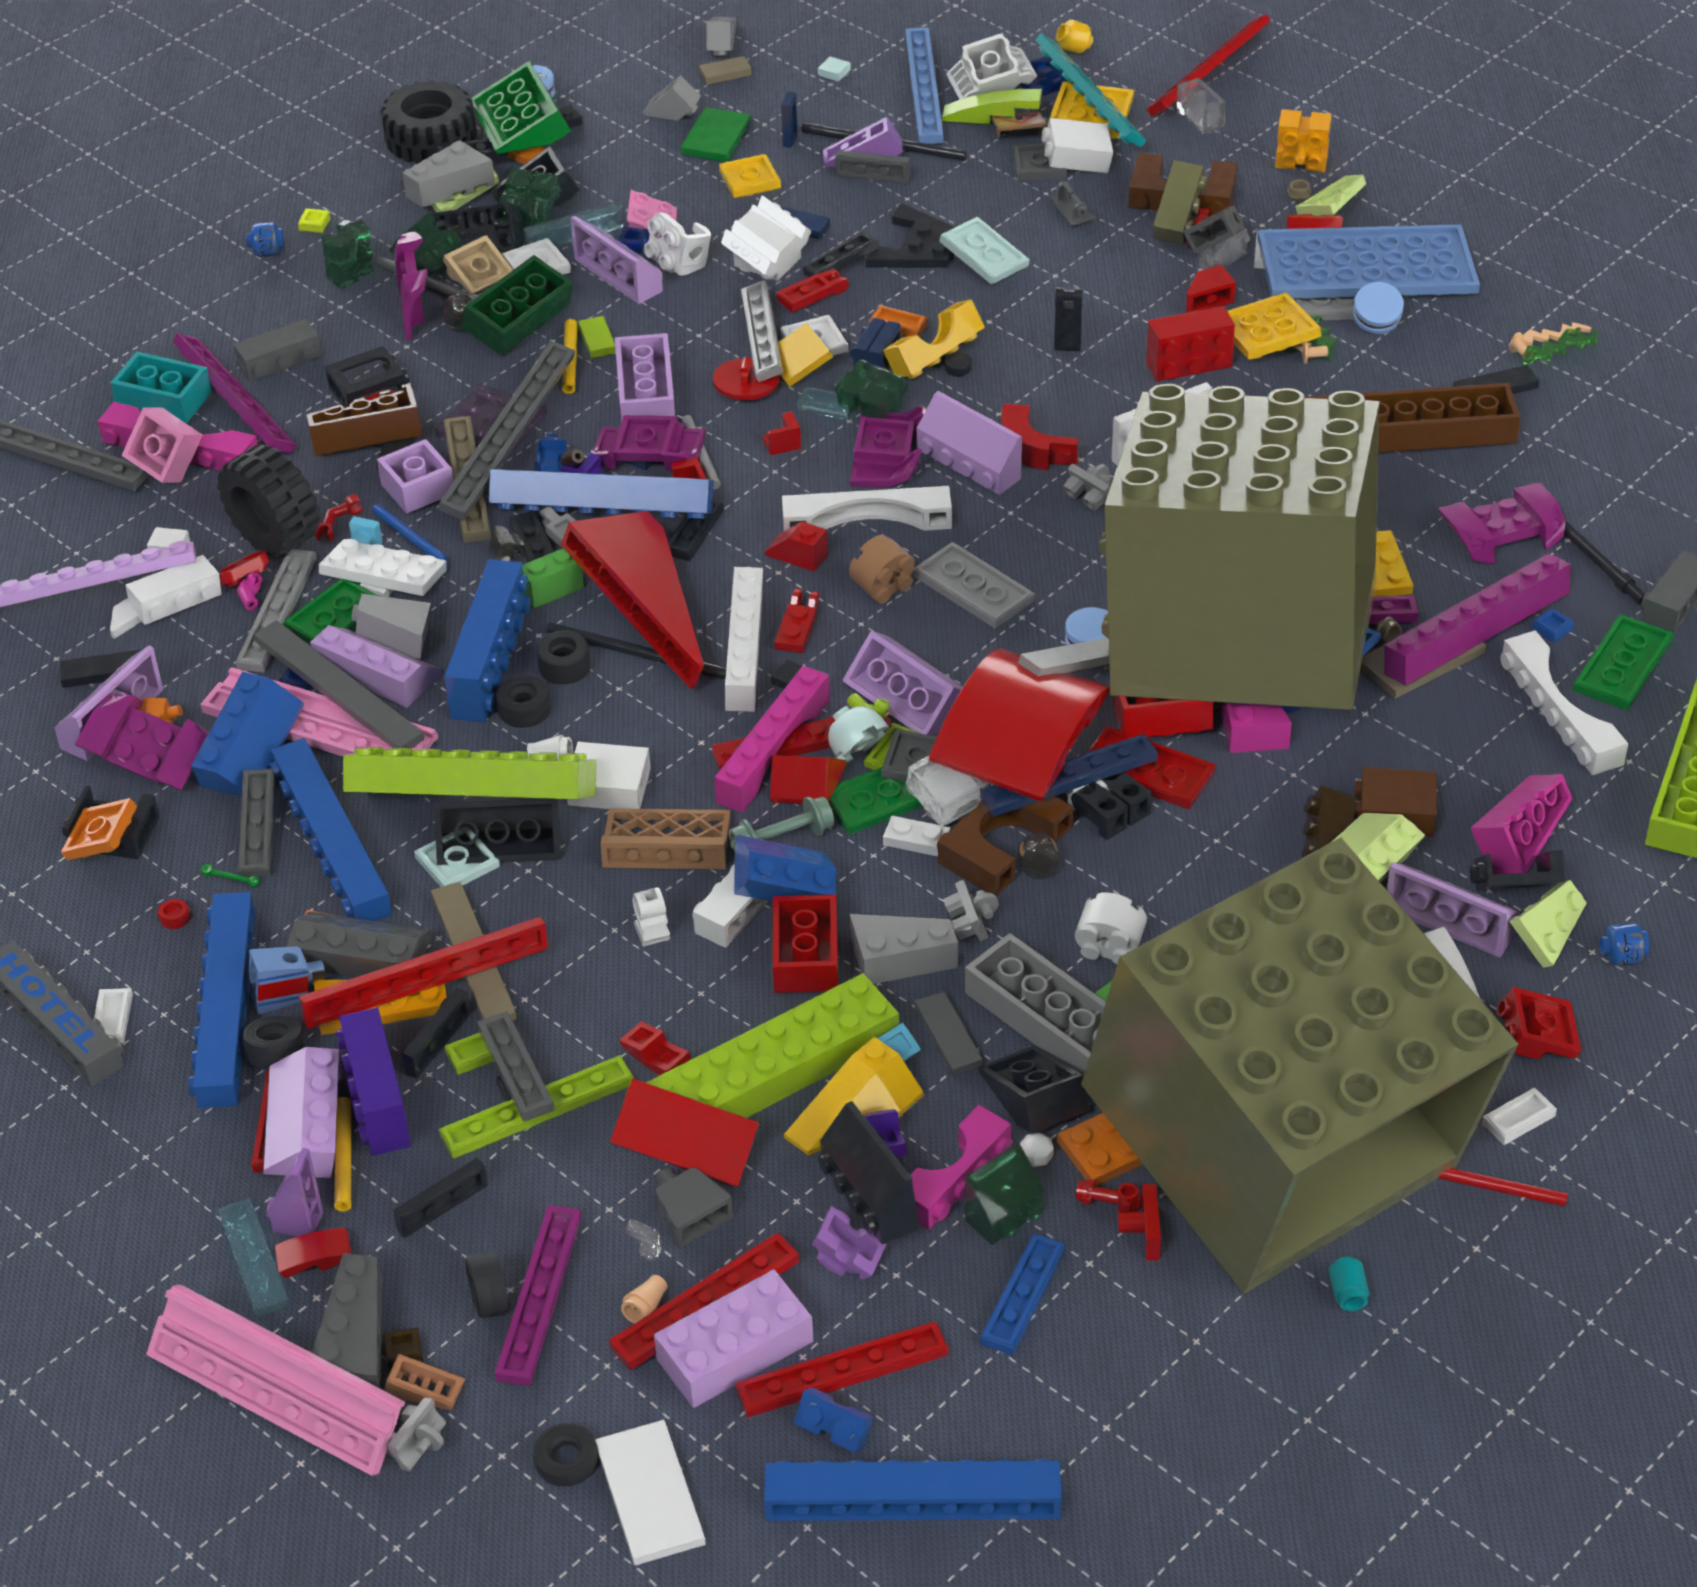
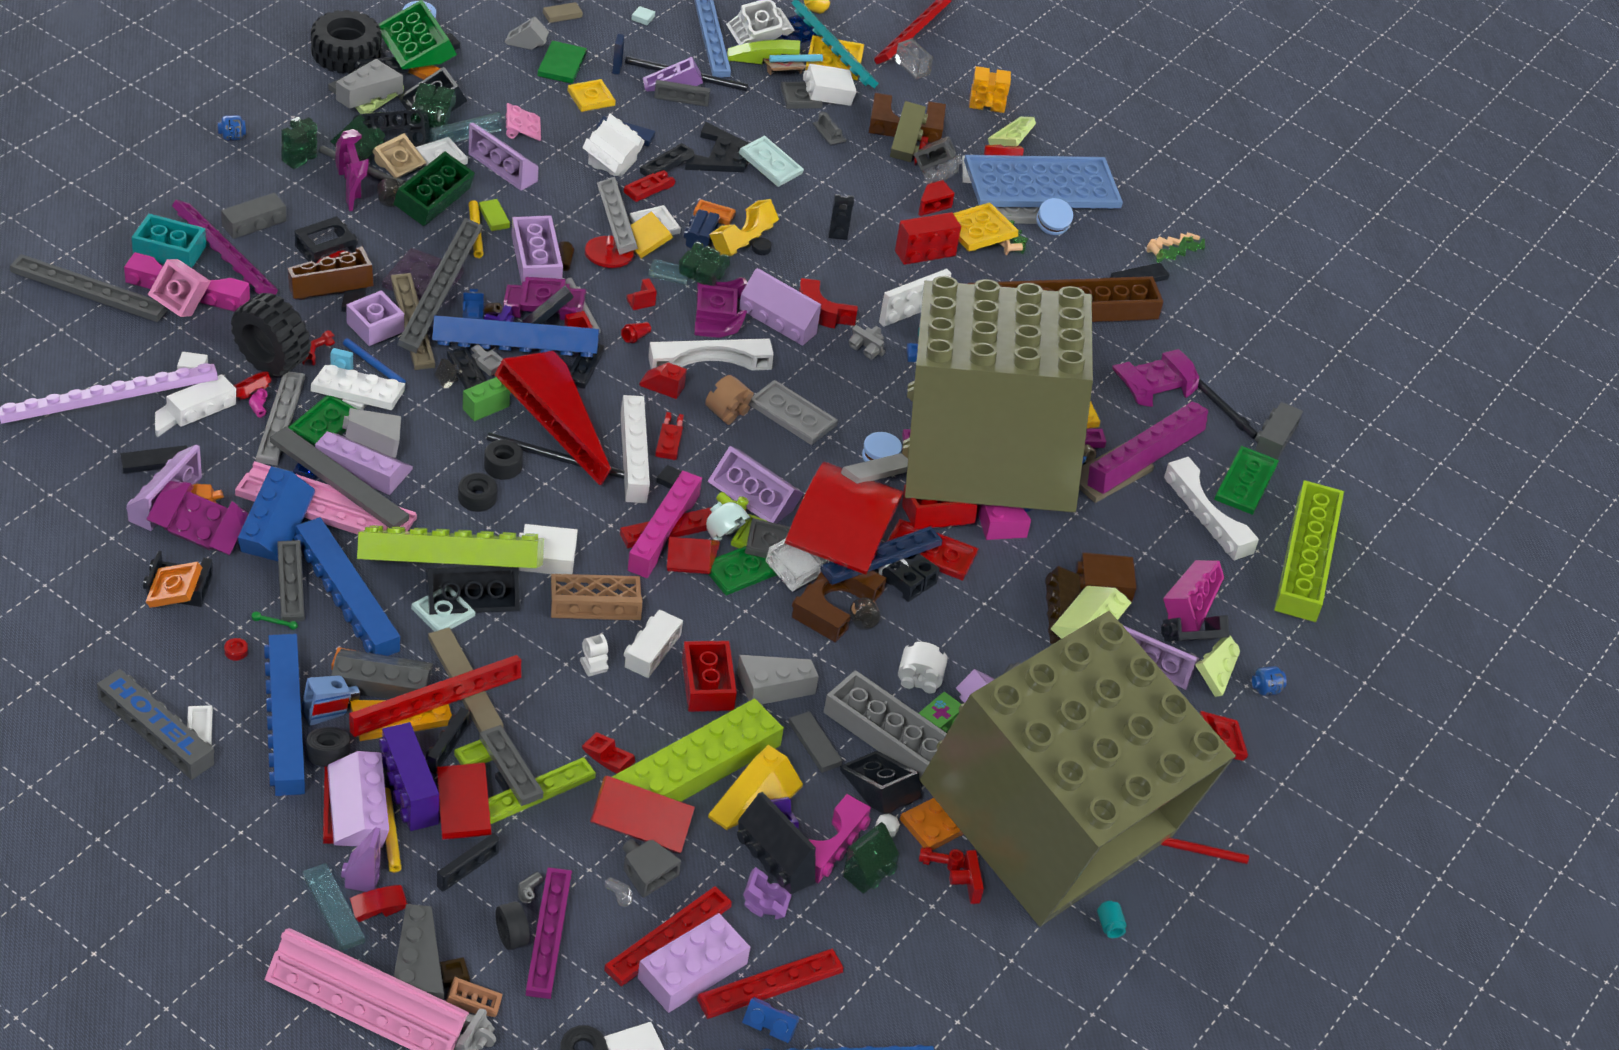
camera: 15 degrees left, 0 degrees up
(314, 220) = (266, 114): neon yellow tile -> none
(445, 1115) = (463, 801): none -> red tile
(487, 641) = (447, 446): blue brick -> none
(517, 1233) = (526, 887): none -> dark grey arm
(557, 744) = (503, 526): white cone -> none
(634, 238) = (512, 139): clear blue plate -> none
(643, 1299) = (625, 935): light nougat cone -> none
(650, 452) = (549, 307): none -> black tile
(671, 245) = (544, 148): white piece -> none
(684, 385) = (566, 252): none -> dark brown cone
(766, 483) = (634, 332): none -> red cone
(780, 869) = (687, 622): blue slope -> none
(816, 814) = (703, 581): sand green piece -> none
(901, 1041) = (785, 746): medium azure plate -> none
(913, 835) = (774, 597): white plate -> none
(982, 905) = (829, 649): light grey hips -> none
(1022, 1294) = (889, 928): blue tile -> none
(1034, 112) = (796, 58): none -> medium azure bar
(1299, 190) = (989, 126): dark tan plate -> none
(1519, 1116) = (1213, 801): white tile -> none
(1553, 625) = (1196, 452): blue tile -> none

